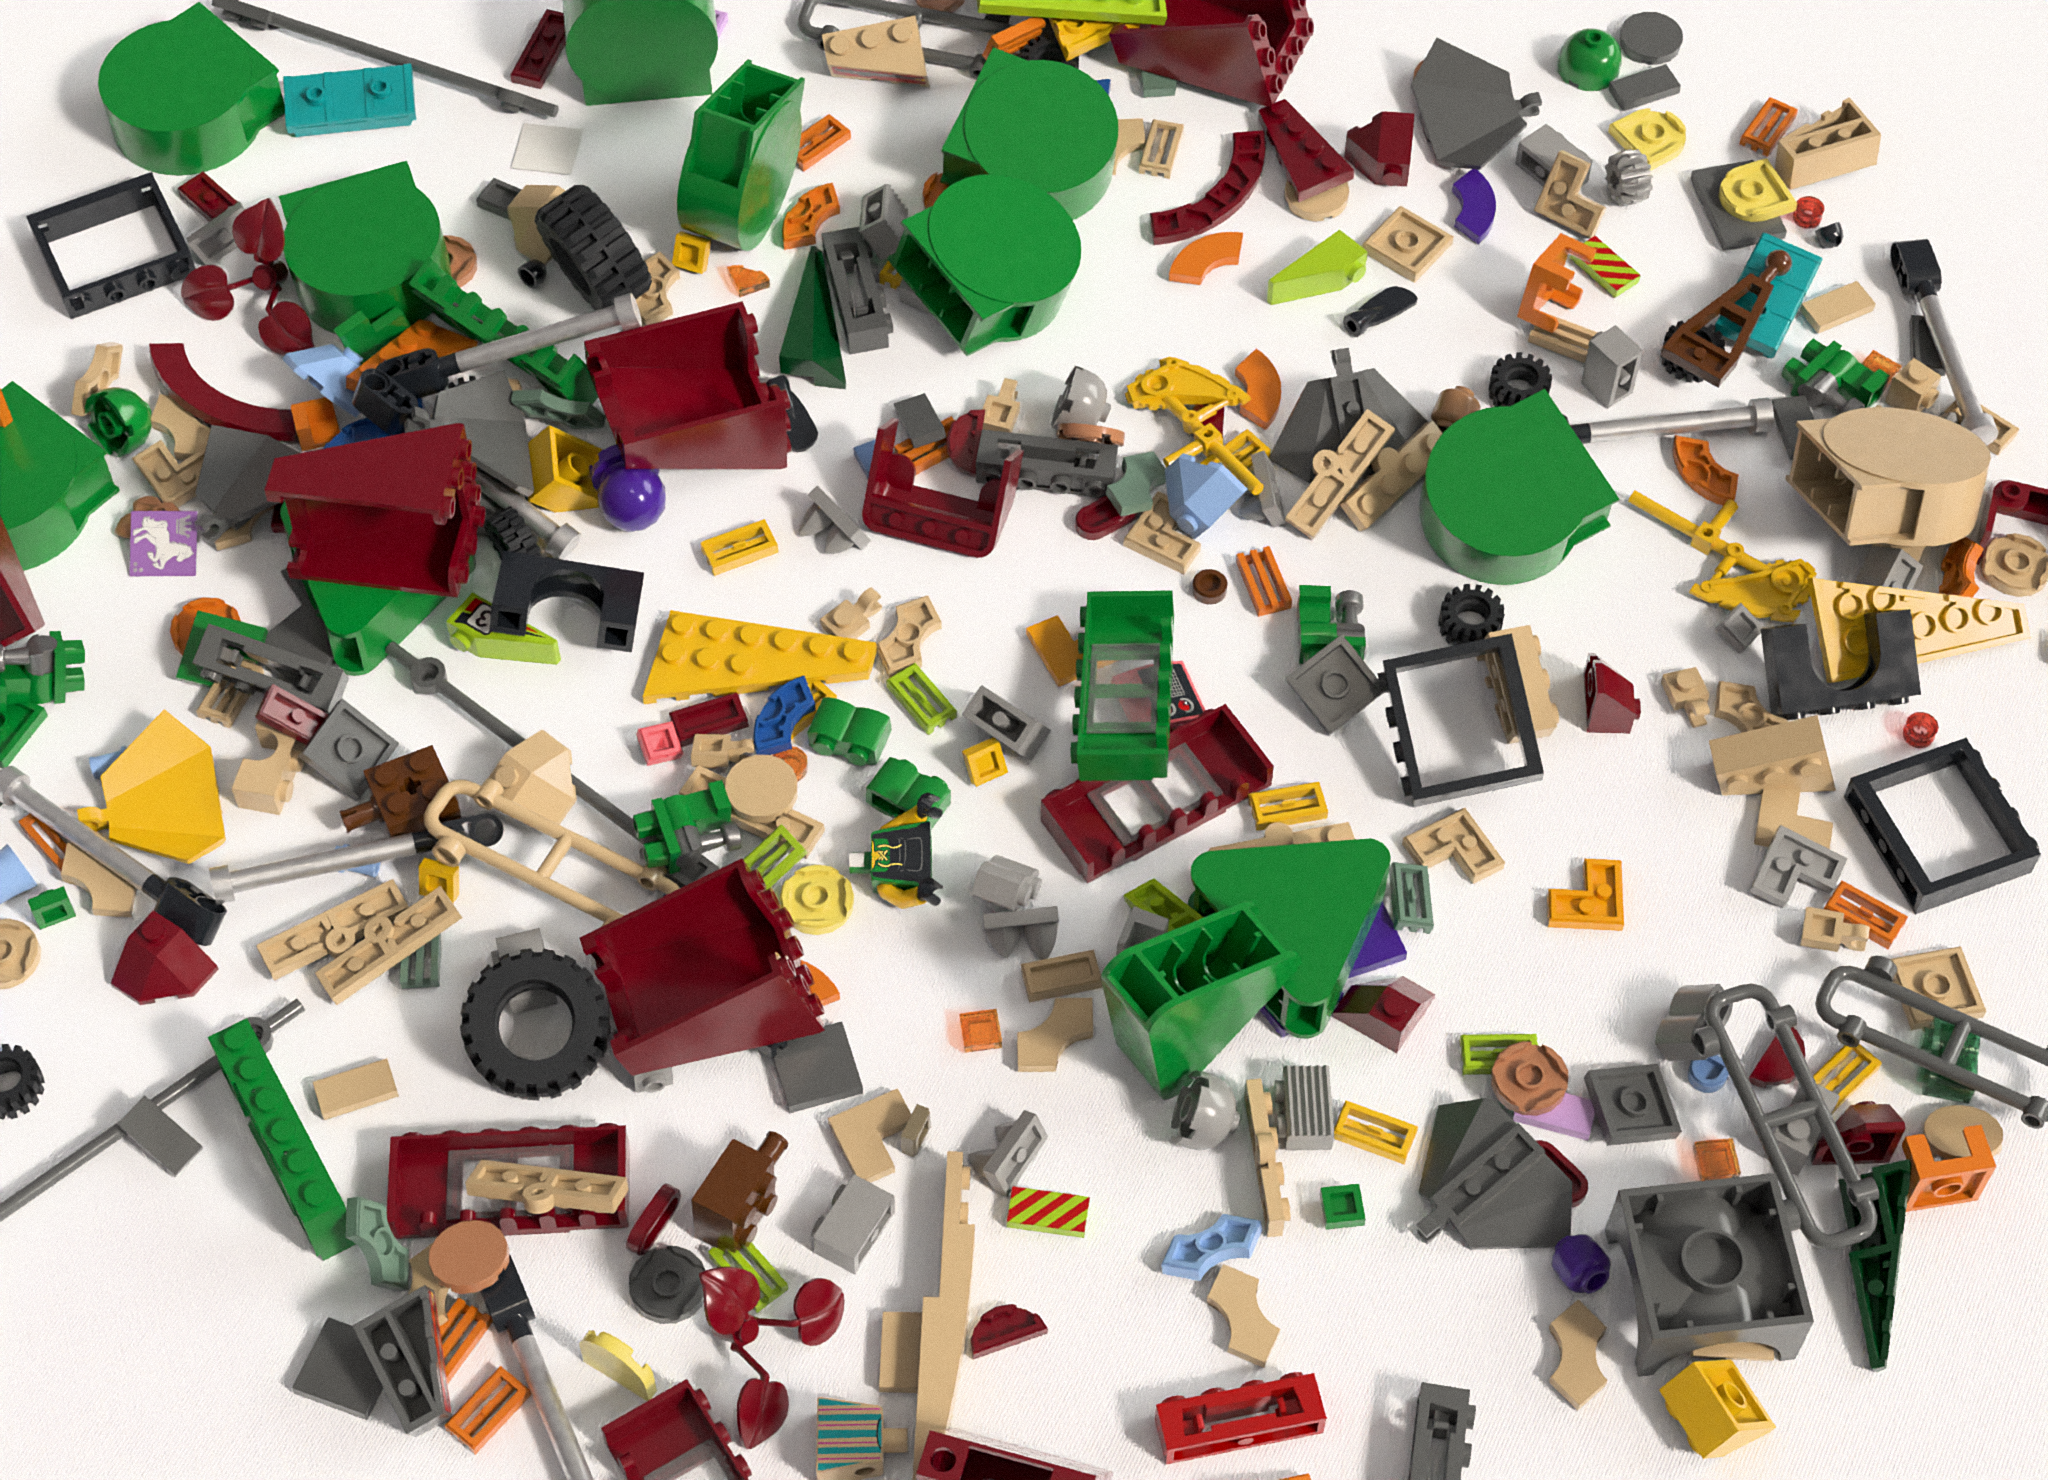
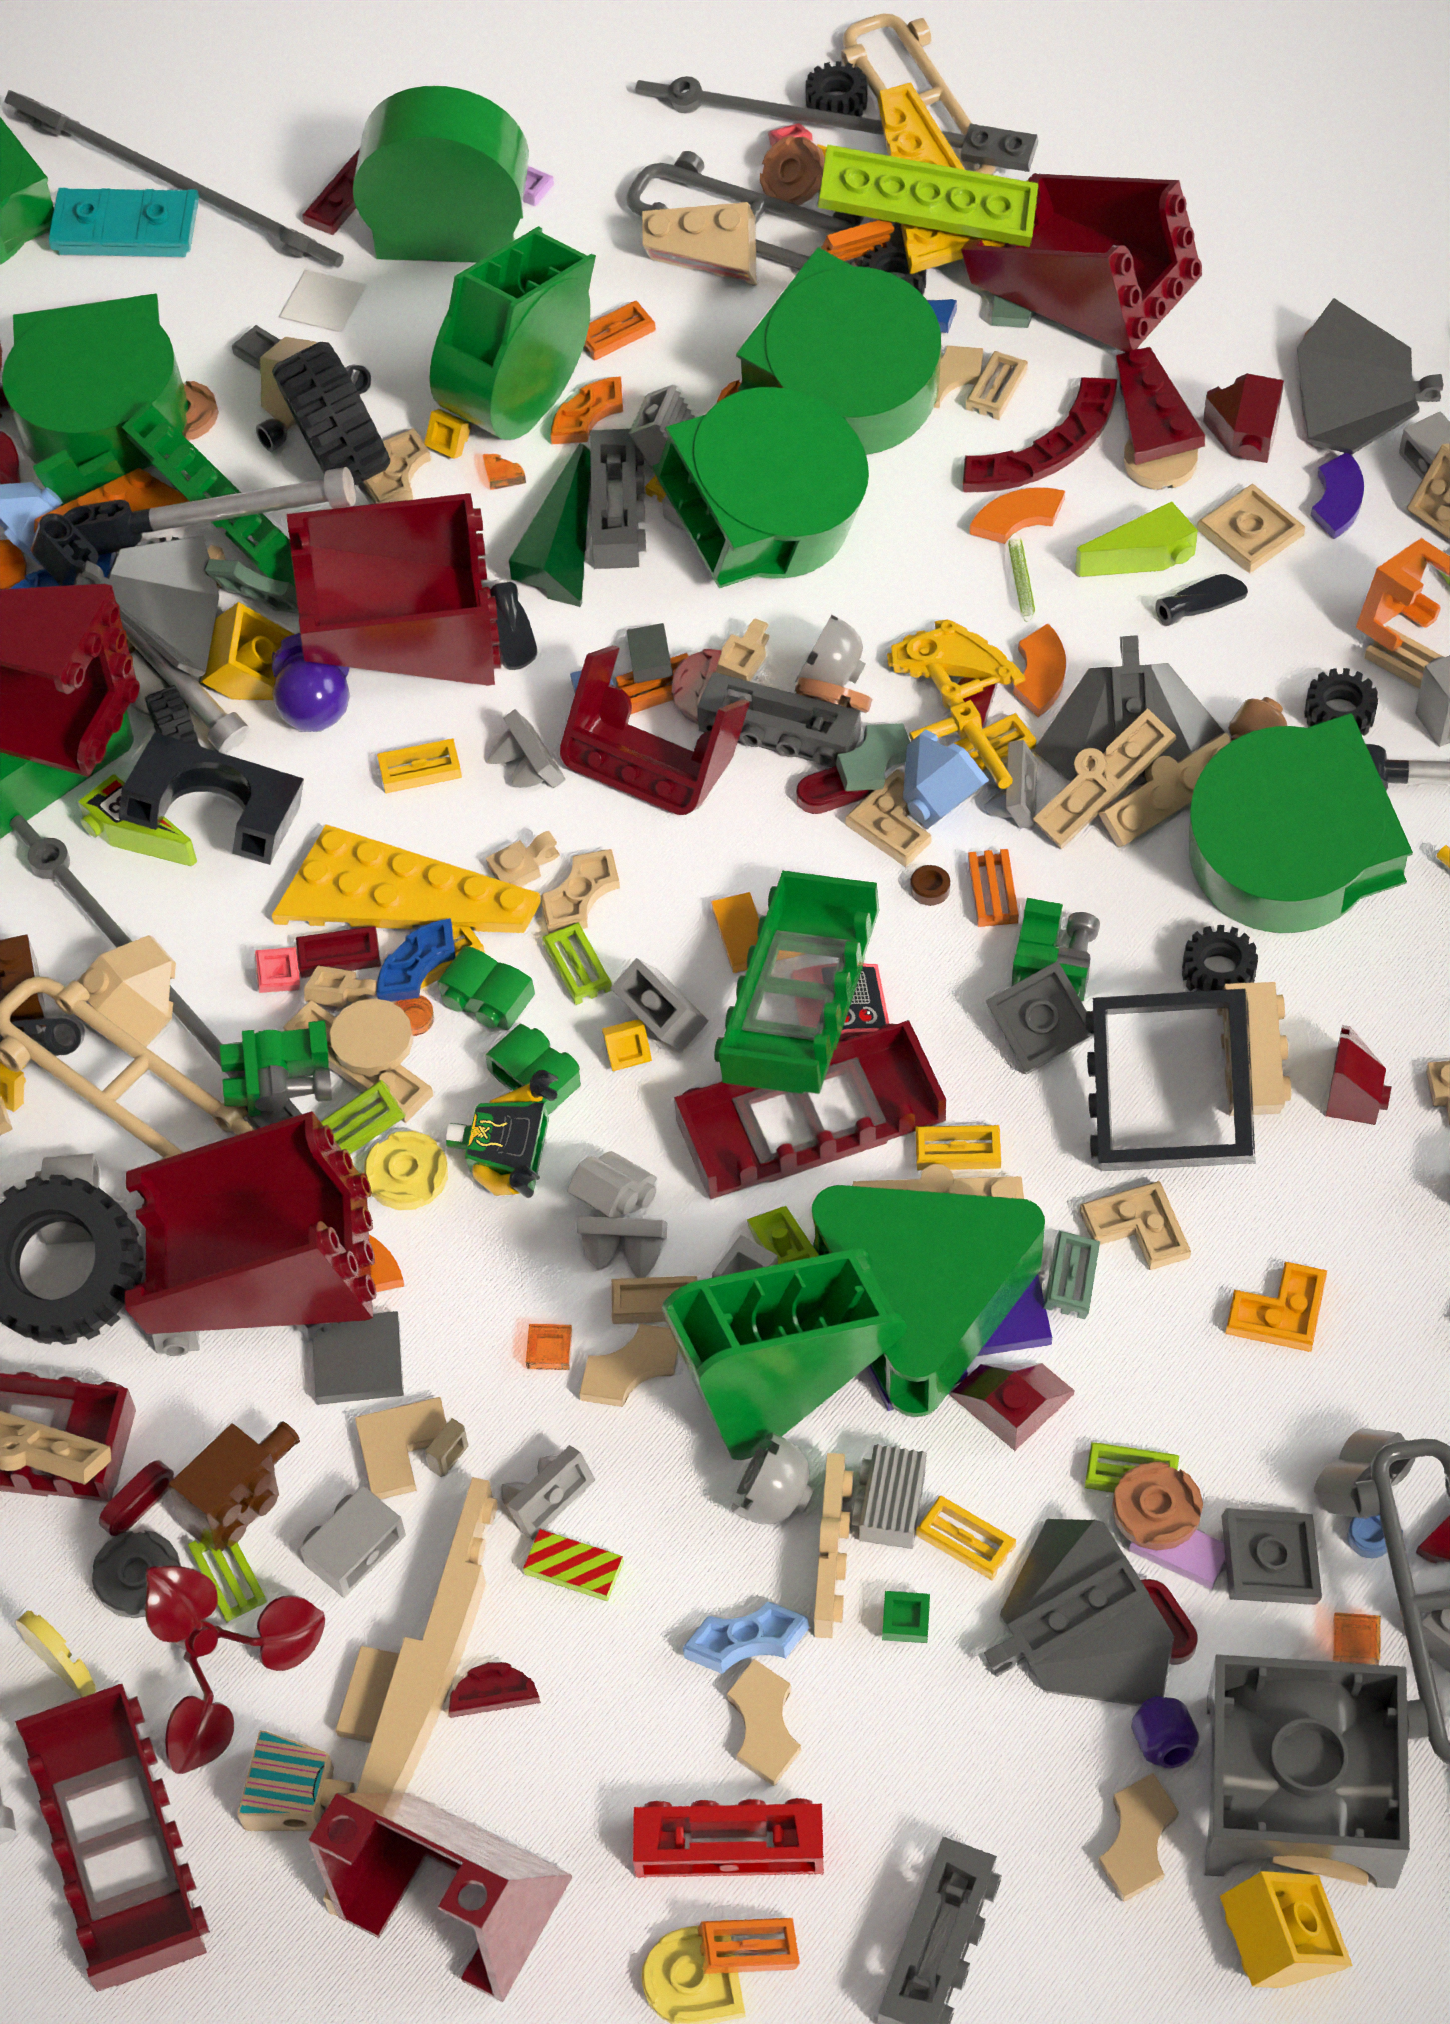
camera: 15 degrees right, 0 degrees up
(1228, 310) = (1017, 582): none -> lime piece

